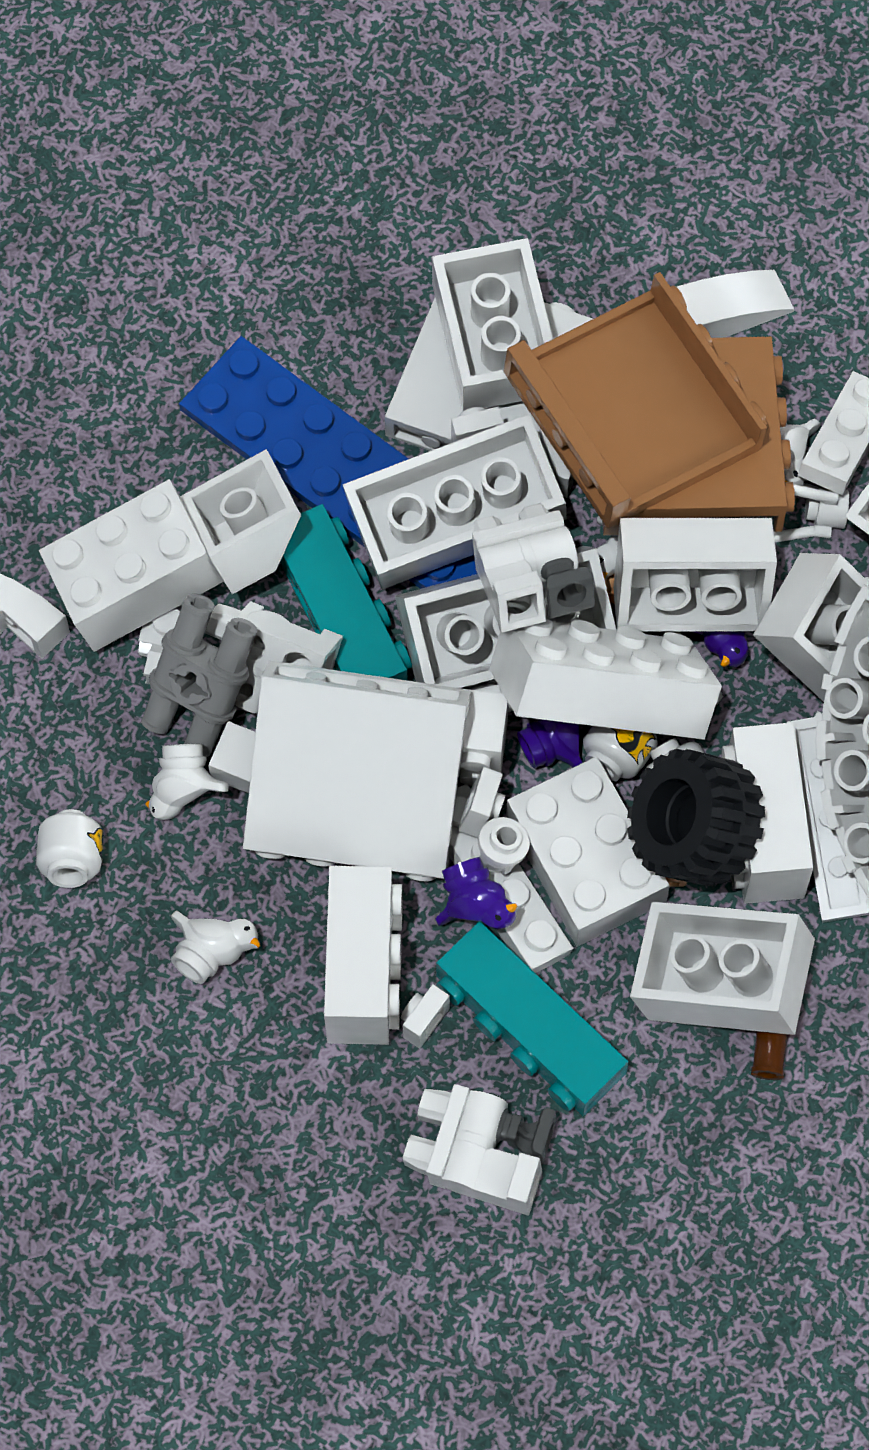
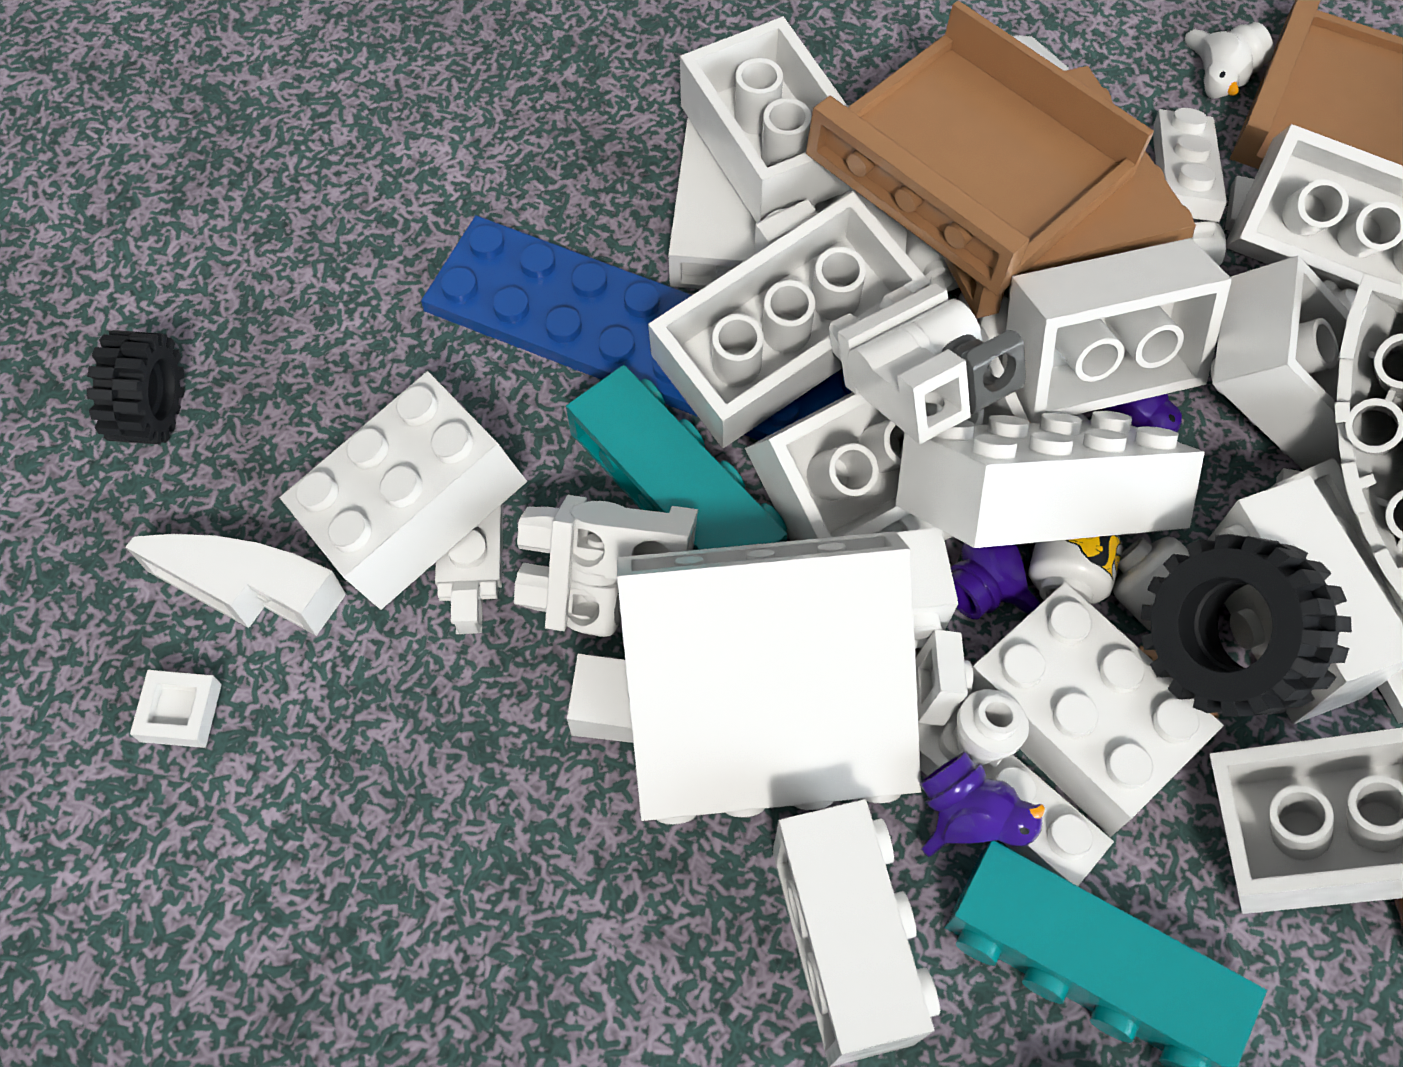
camera: 15 degrees left, 5 degrees down
(69, 848) = (403, 881): white head -> none
(181, 780) = (534, 747): white animal -> none
(199, 674) = (525, 602): light grey pin -> none
(211, 945) = (632, 968): white animal -> none
(244, 520) = (537, 400): white slope -> none
(424, 1015) = (958, 992): white plate -> none

